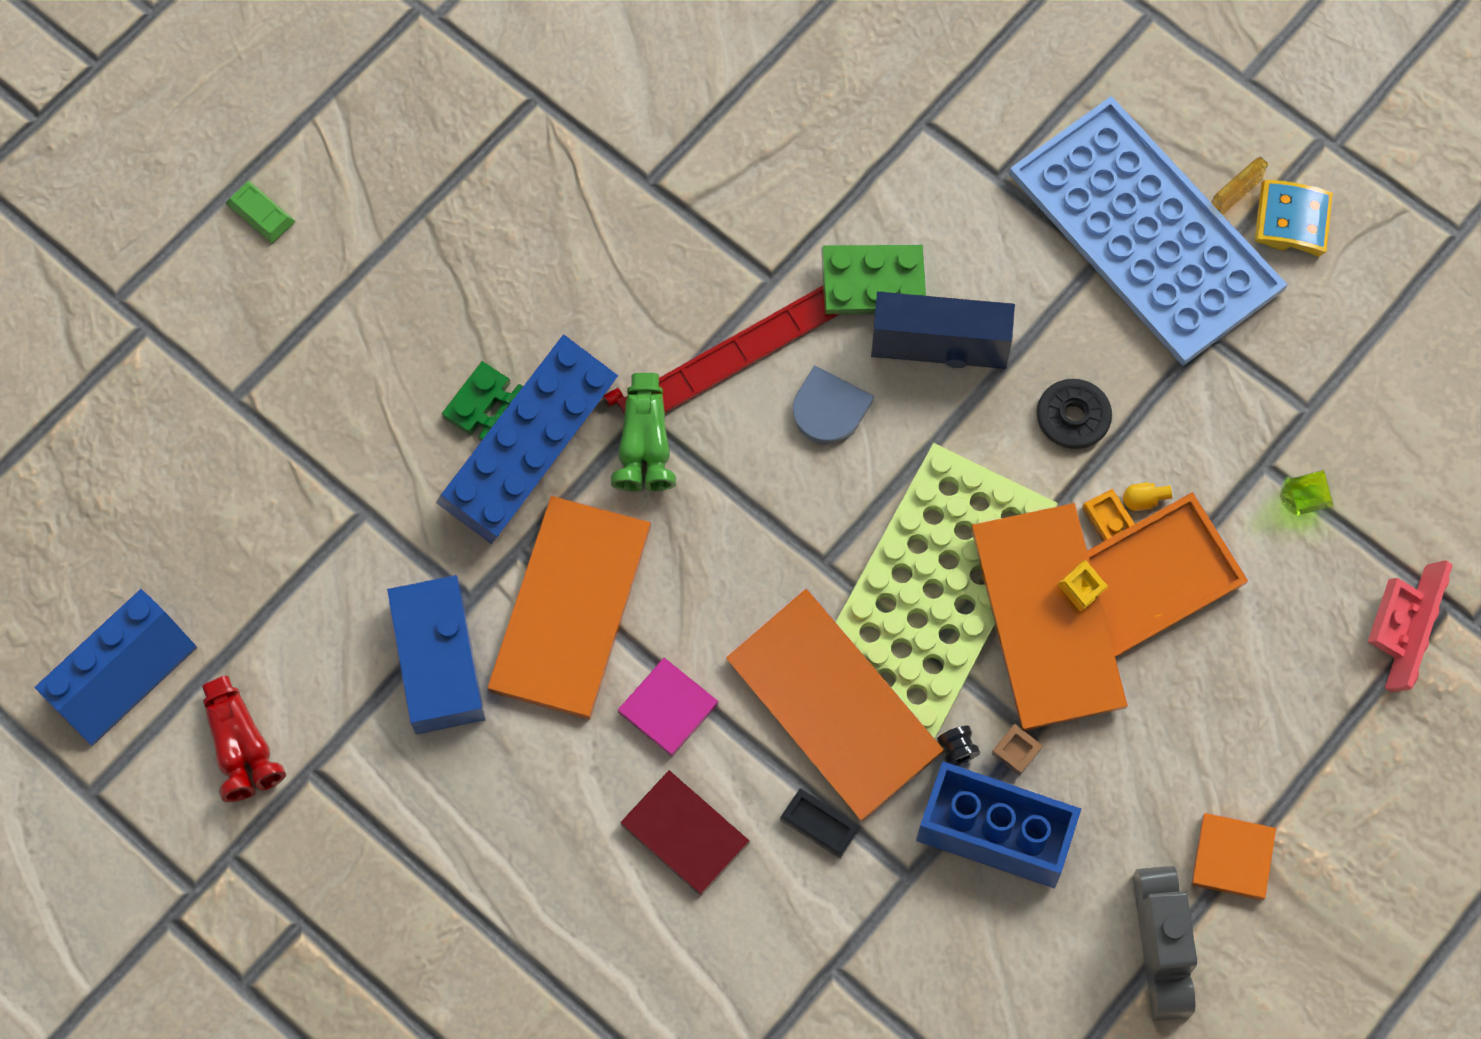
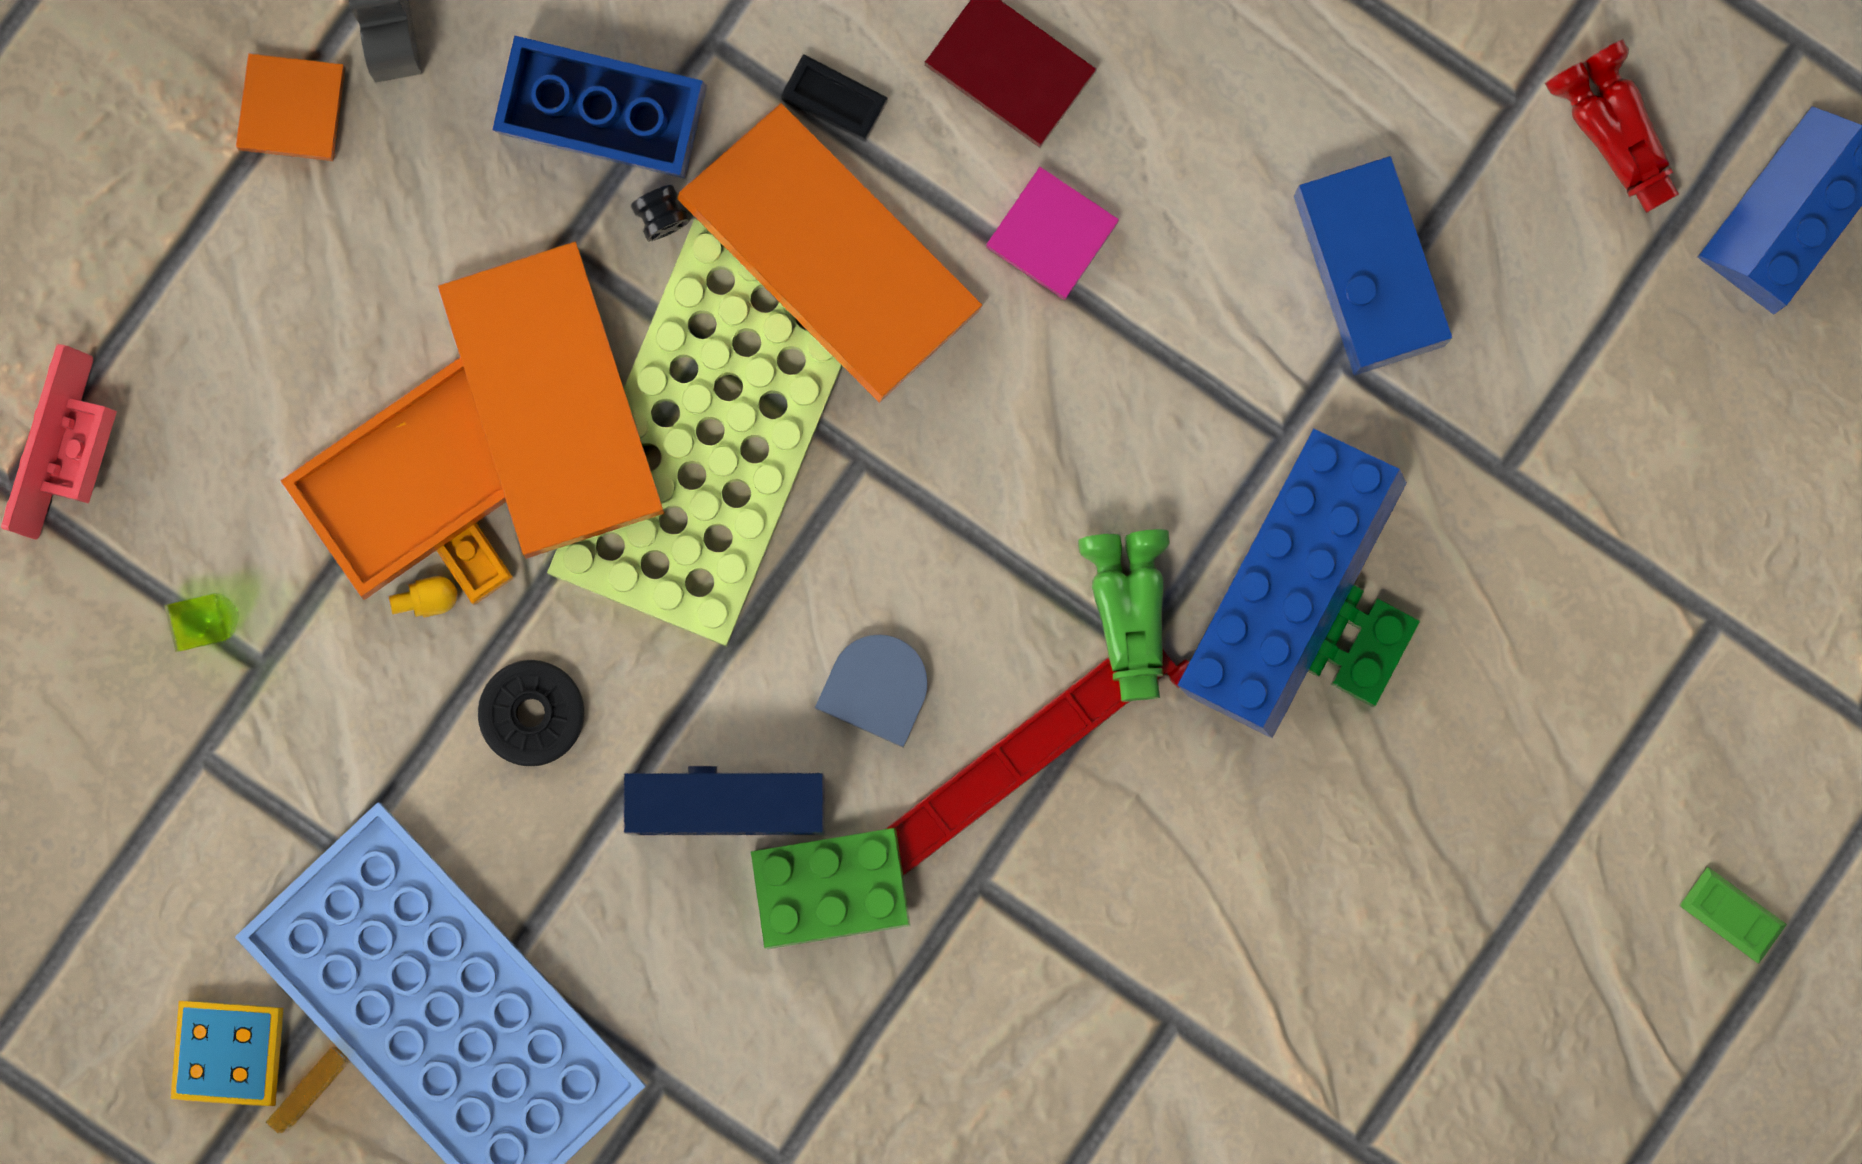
camera: 170 degrees right, 15 degrees up
(569, 607) = (1201, 361): orange tile -> none
(1017, 749) = (582, 217): medium nougat plate -> none
(1082, 585) = (506, 433): yellow tile -> none

